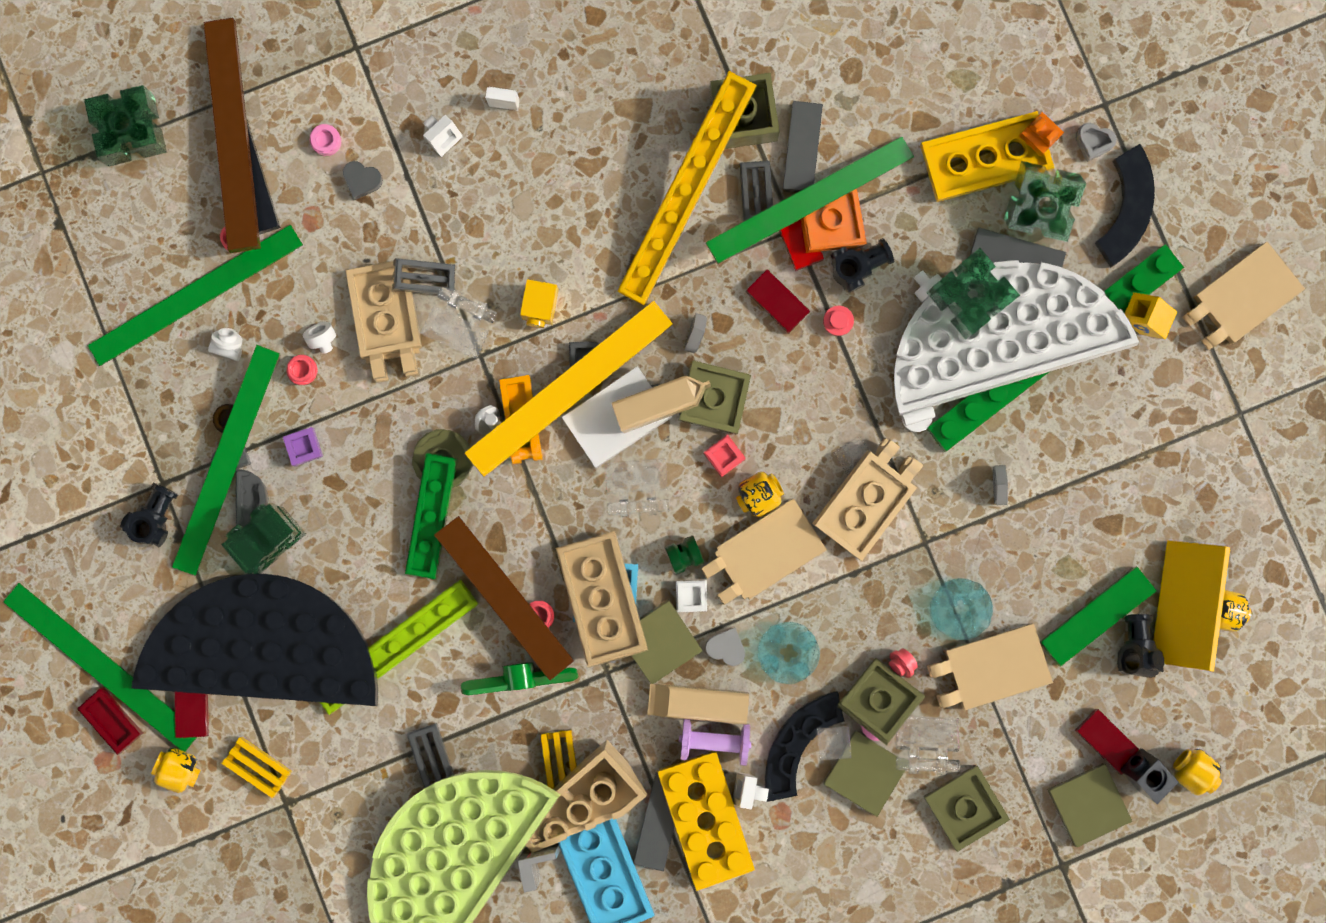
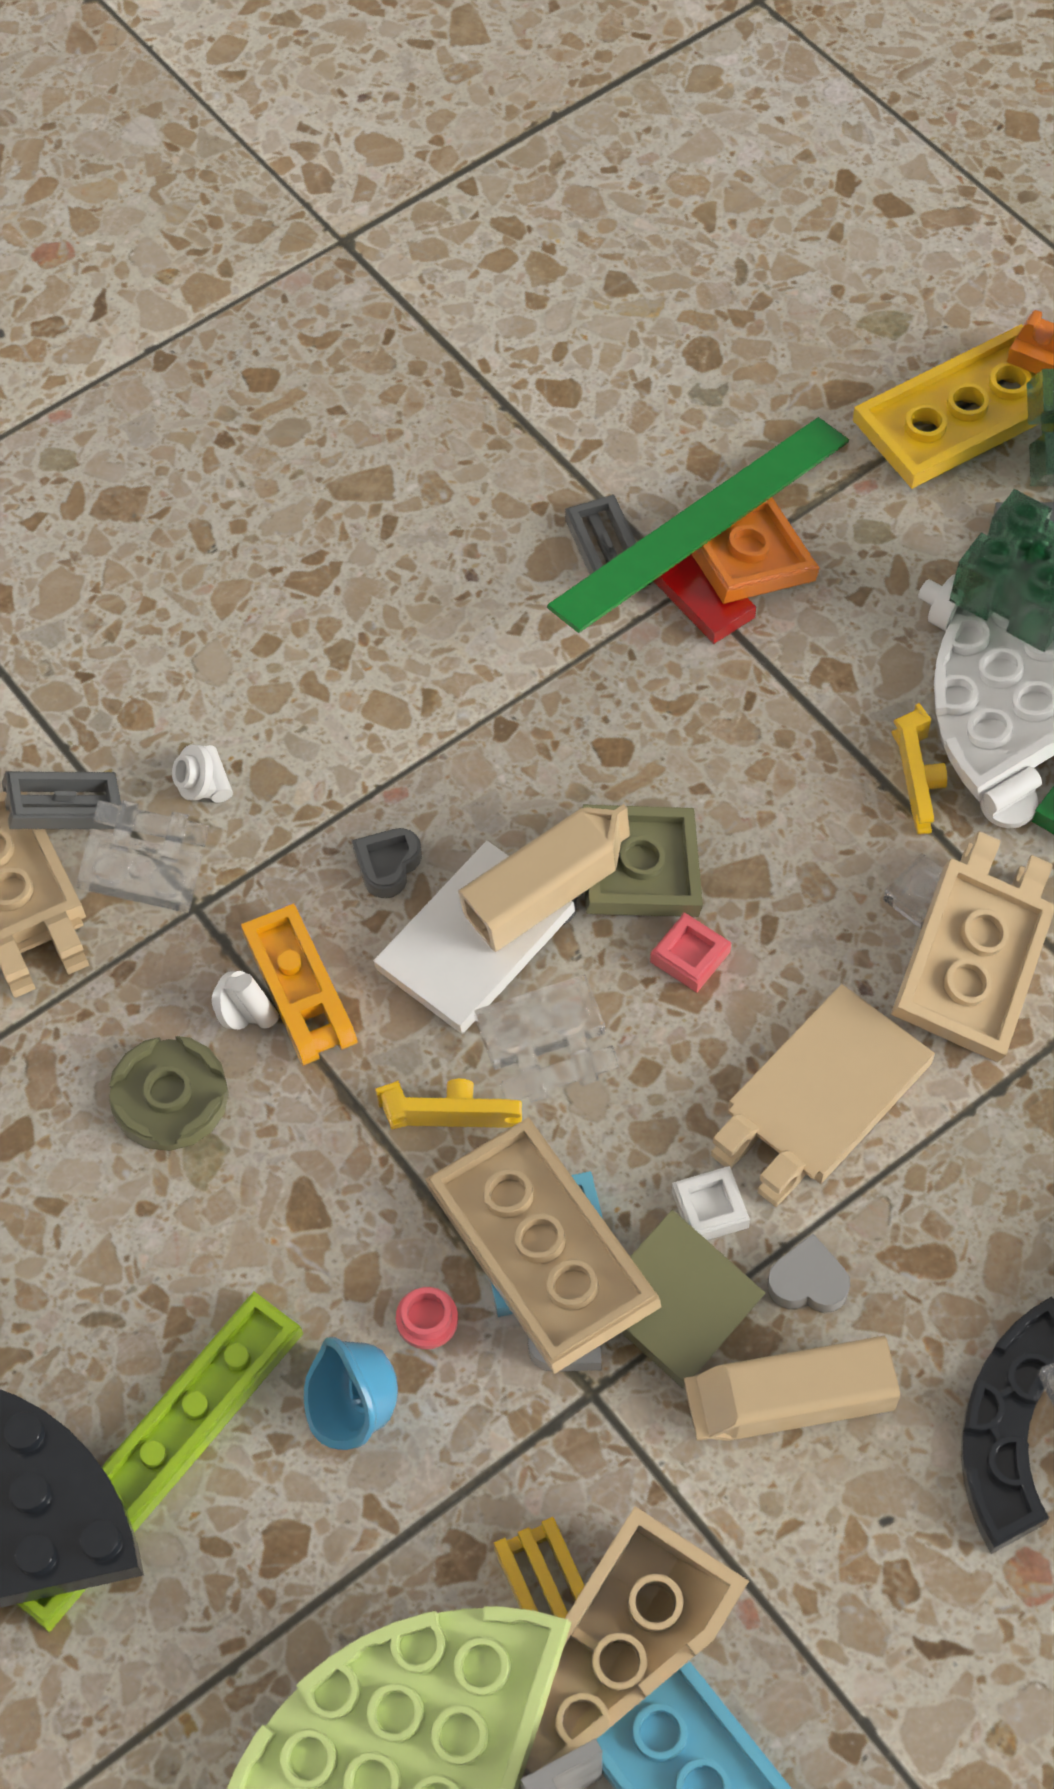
camera: 15 degrees left, 25 degrees down
(430, 515) = (169, 1192): green tile -> none
(430, 753) = (249, 1610): dark grey tile -> none
(441, 134) = (45, 584): white tile -> none
(492, 647) = (349, 1393): none -> dark azure helmet
(500, 279) = (201, 774): none -> white plate
(502, 98) = (137, 512): white tile -> none
(504, 598) = (353, 1292): reddish brown tile -> none
(516, 678) = (424, 1439): green piece -> none
(539, 303) = (281, 788): yellow brick -> none
(568, 389) = (366, 912): yellow tile -> none
(583, 509) = (455, 1110): none -> yellow piece
(656, 831) = (790, 1655): dark grey tile -> none
(684, 554) = (674, 1128): dark green wheel -> none
(687, 187) = (487, 554): yellow tile -> none
(696, 333) = (574, 770): light grey tile -> none
(715, 742) = (850, 1451): lavender hose -> none
(725, 828) = (873, 1663): yellow plate -> none
(746, 791) = (947, 1534): white tile -> none
(759, 118) = (548, 429): olive brick -> none
(759, 494) = (777, 989): yellow head -> none
(778, 301) = (700, 691): dark red tile -> none
(798, 667) = (925, 1286): clear light blue plate -> none
(802, 146) = (659, 460): dark grey tile -> none
(838, 320) = (815, 692): coral plate -> none
(861, 262) = (819, 596): black connector -> none
(875, 388) = (919, 777): none -> yellow piece

